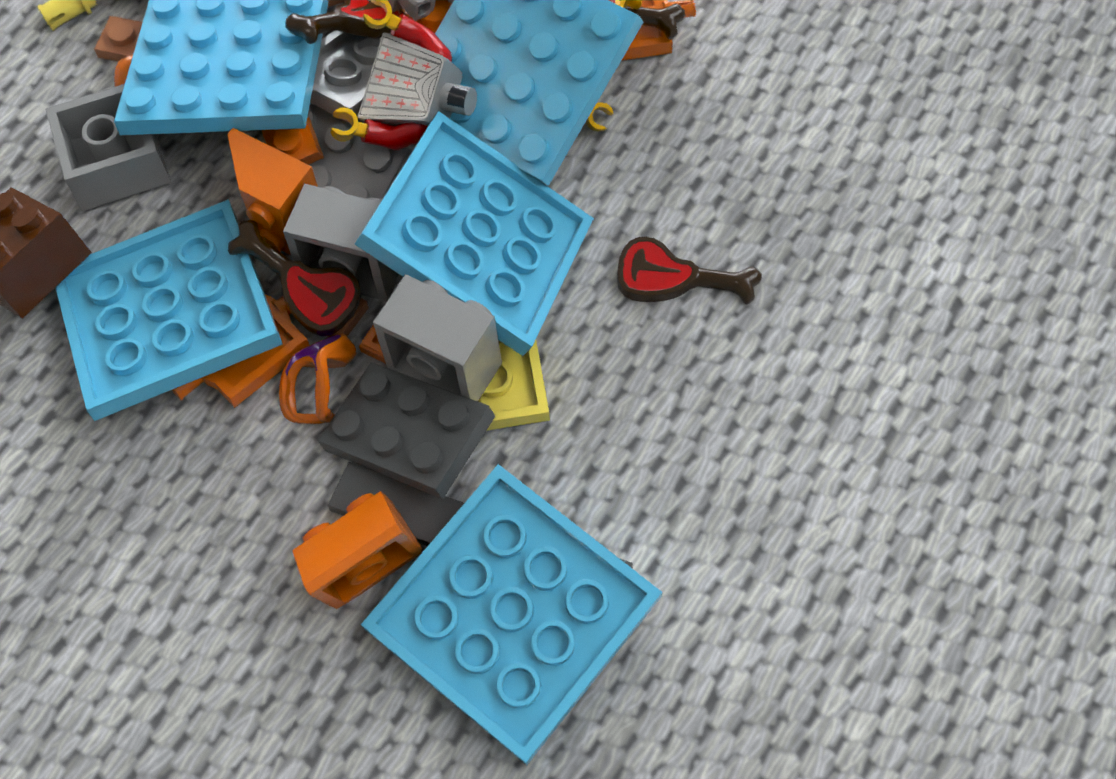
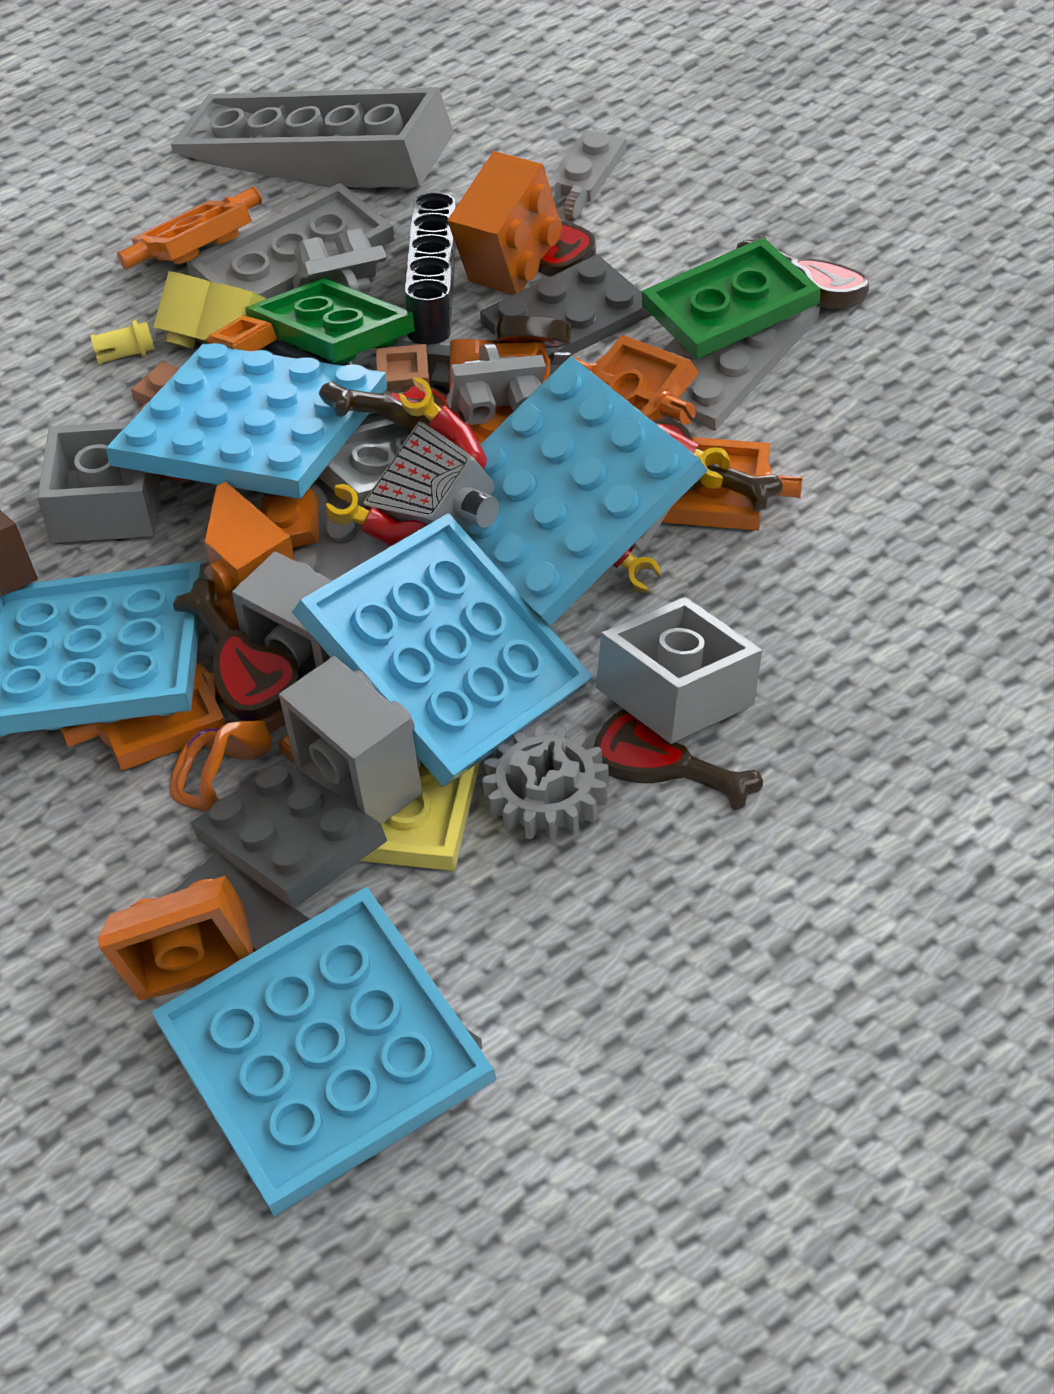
camera: 20 degrees right, 15 degrees down
(619, 319) = (546, 782): none -> light grey gear
(666, 198) = (678, 669): none -> light grey brick

